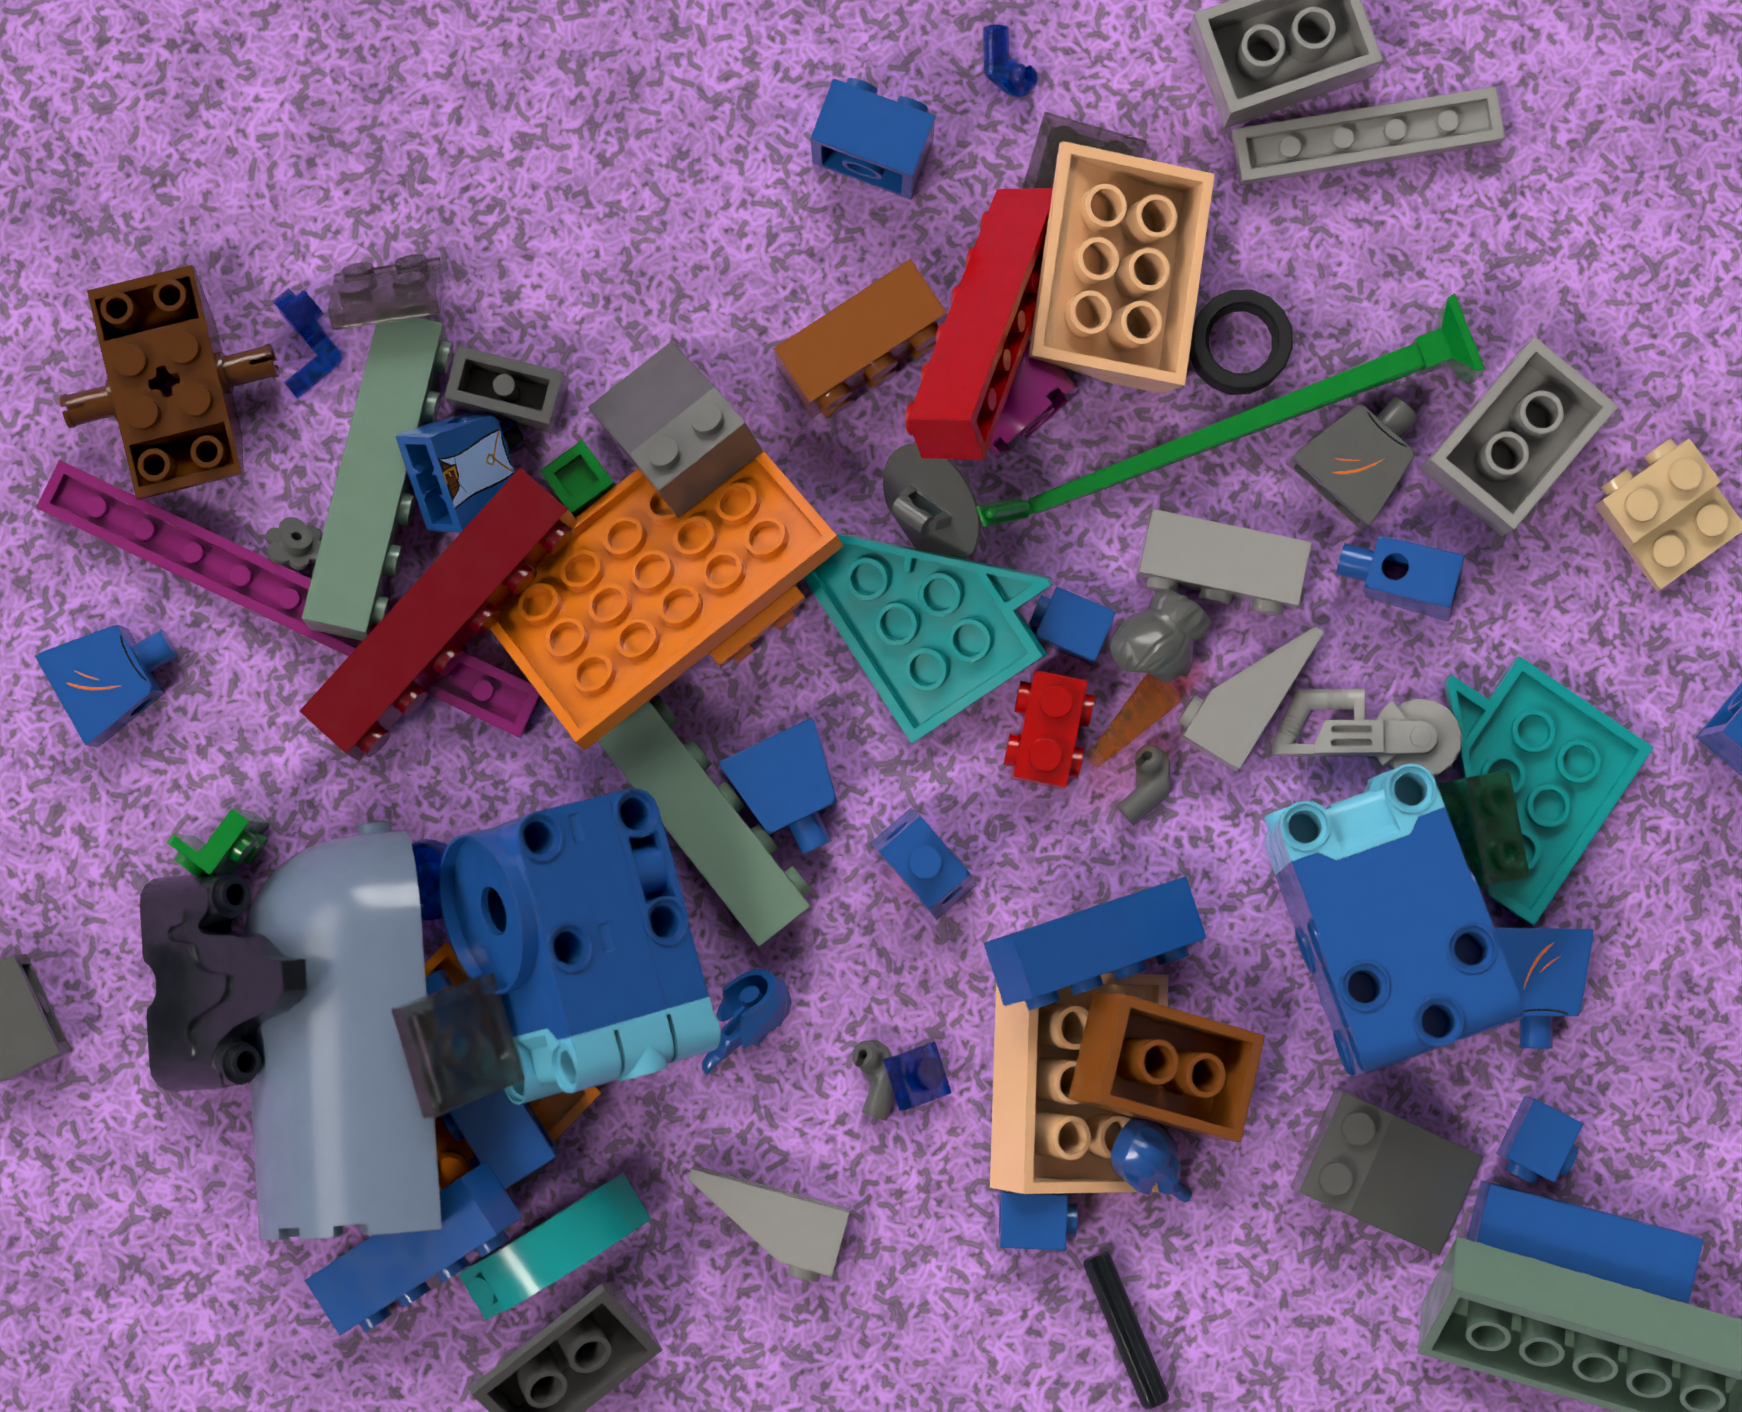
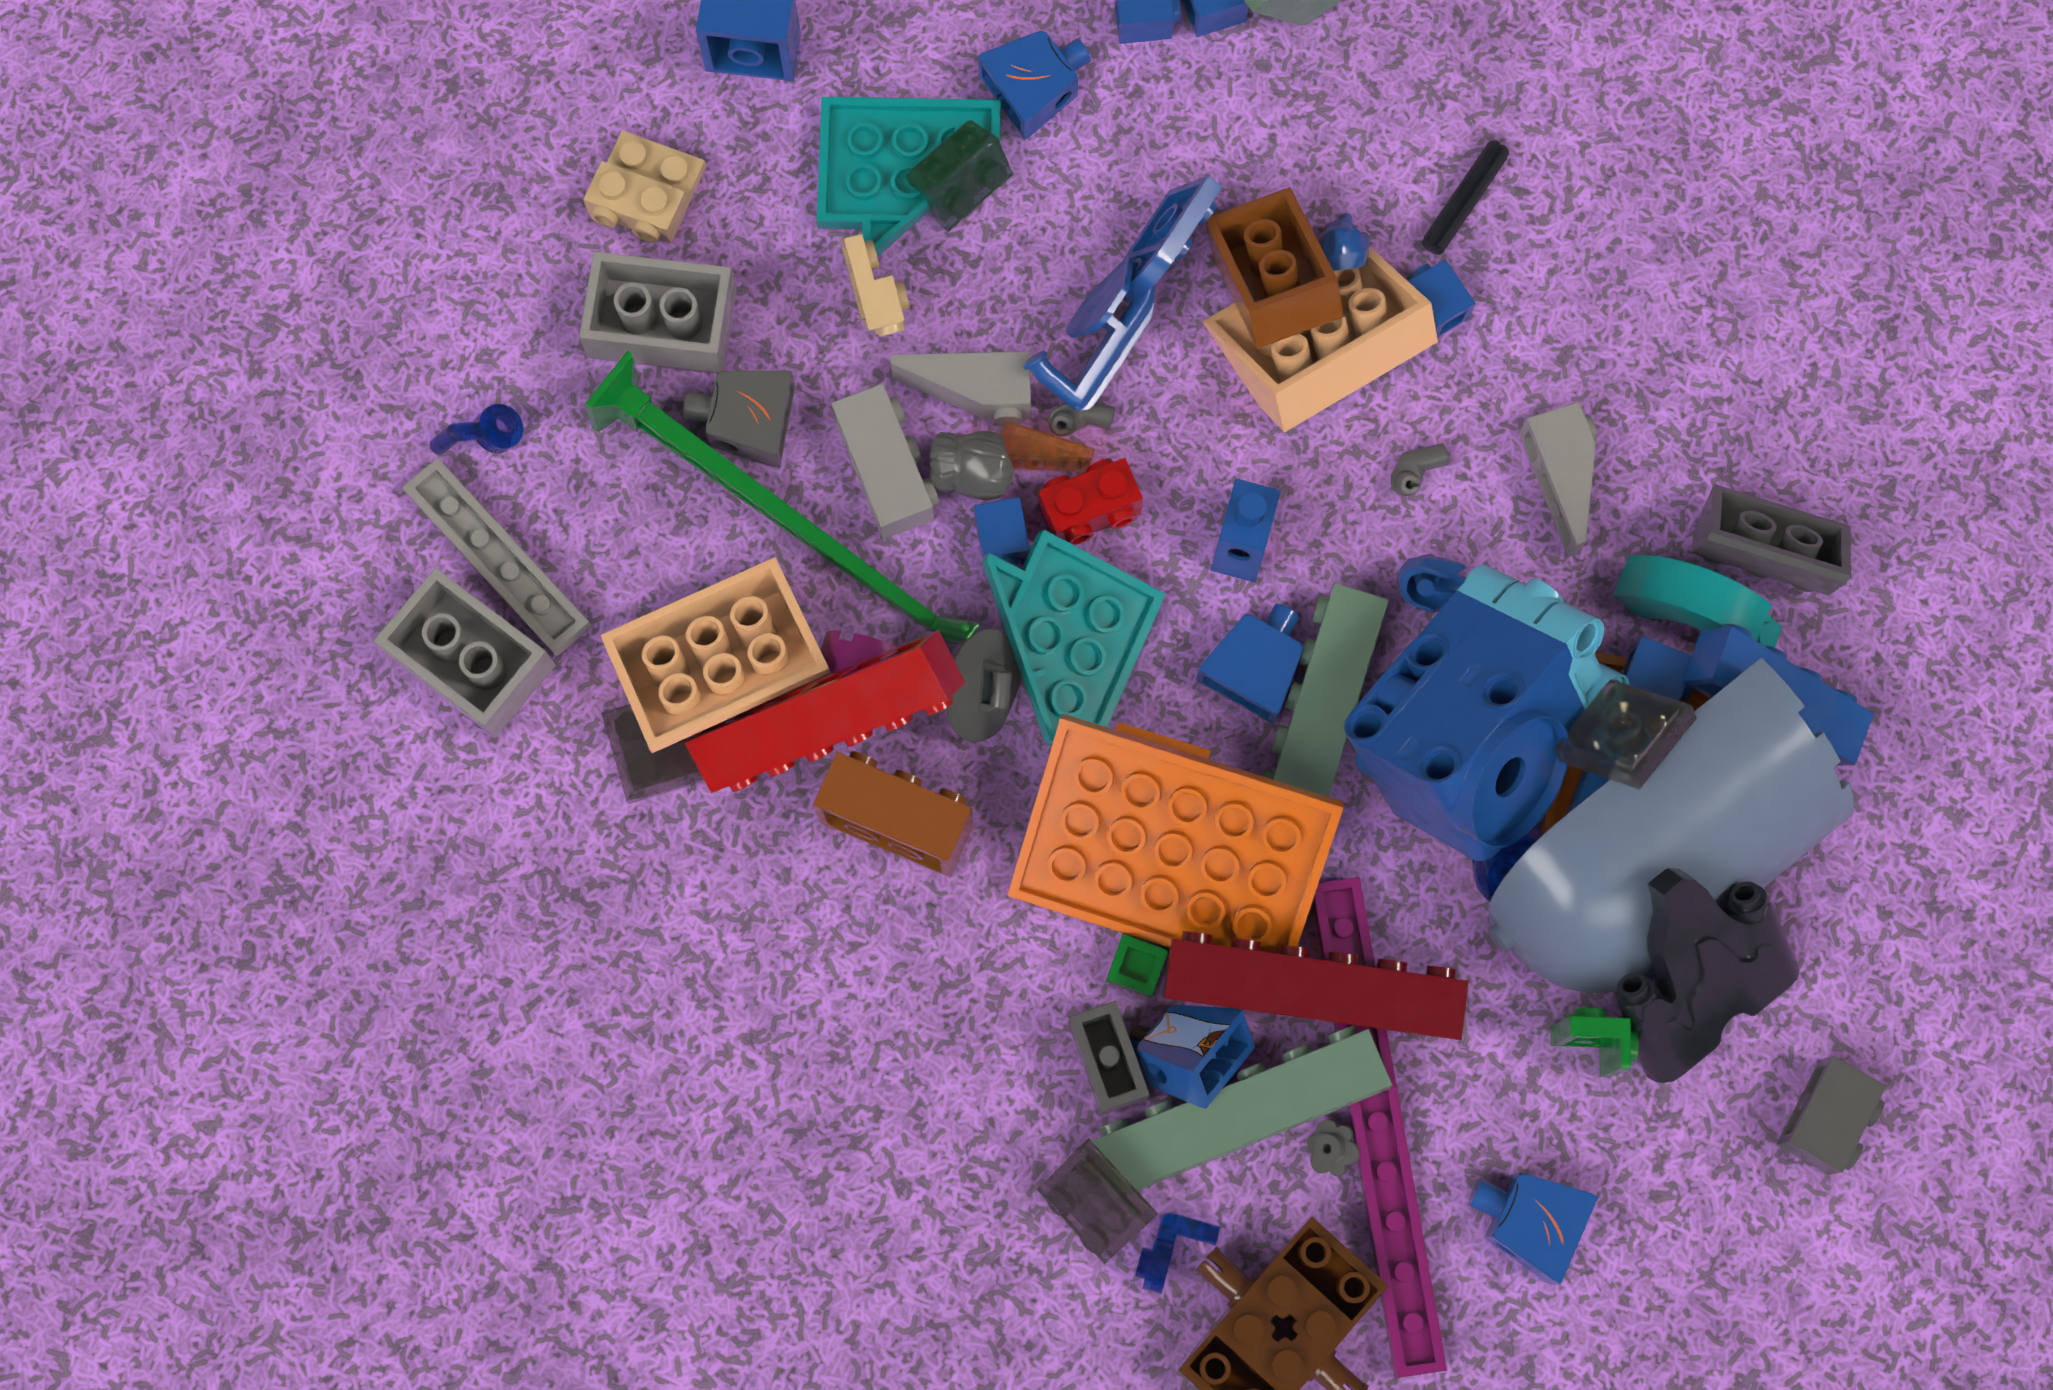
camera: 125 degrees left, 10 degrees down
(676, 429) = (1051, 913): dark grey slope -> none
(873, 136) = (732, 905): blue brick -> none
(917, 1076) = (1397, 439): clear blue plate -> none
(1003, 69) = (611, 855): clear blue arm -> none
(1093, 942) = (1223, 366): blue brick -> none
(1257, 948) = (1133, 280): none -> blue plate
(1281, 340) = (702, 516): black tyre -> none
(1386, 1171) = (1237, 99): dark grey slope -> none
(1390, 921) = (1070, 176): blue piece -> none
(1402, 656) = (877, 297): none -> tan plate
(1412, 733) = (924, 255): light grey piece -> none
(1425, 589) = (808, 310): blue torso -> none
(1505, 199) = (483, 430): none -> clear blue plate

